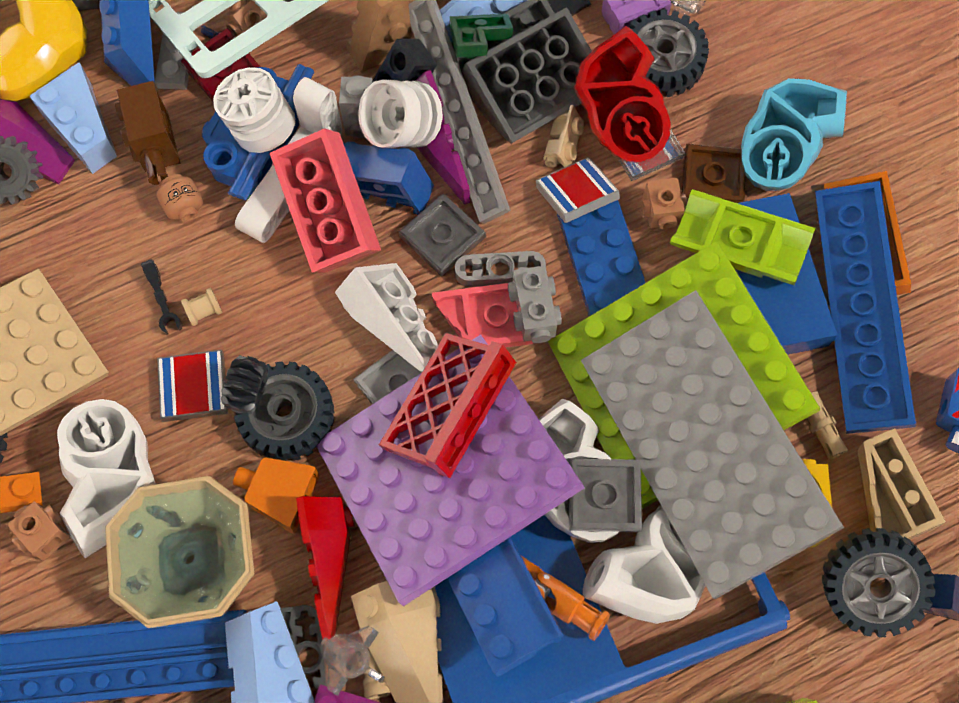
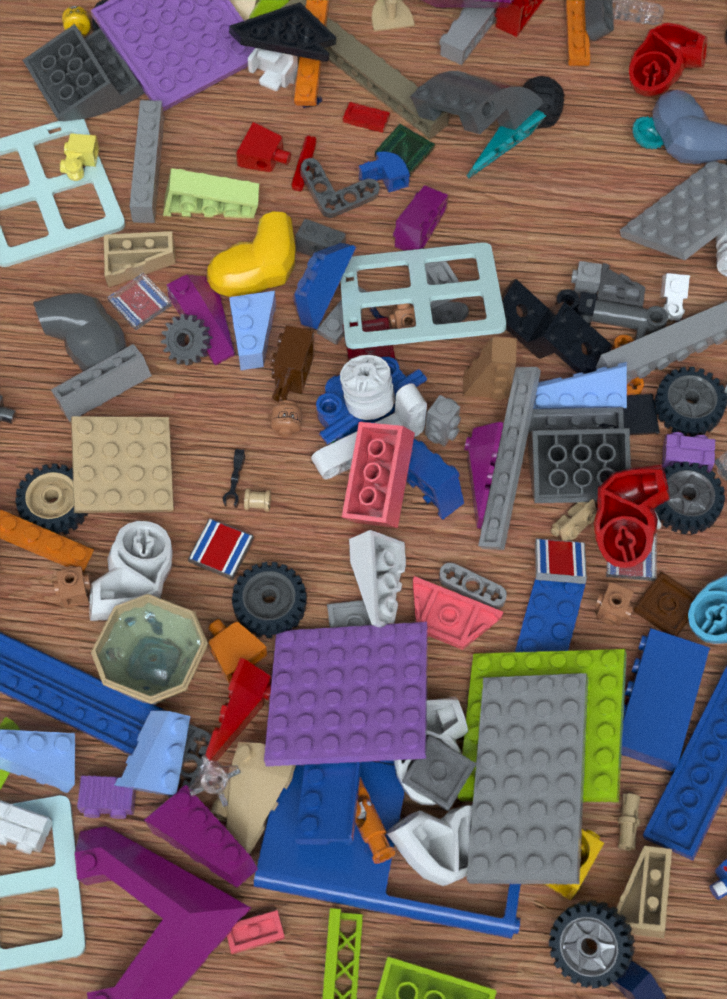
camera: 30 degrees right, 5 degrees down
(244, 384) = (252, 566): black gear -> none
(400, 113) = (463, 442): white wheel -> none
(406, 61) = (487, 409): black brick -> none
(442, 234) = (447, 540): flat silver tile -> none
(467, 409) = (381, 664): red fence -> none
(472, 31) = (553, 408): dark green plate -> none
(533, 296) = (474, 629): light grey brick -> none
(749, 237) = (653, 660): lime piece -> none

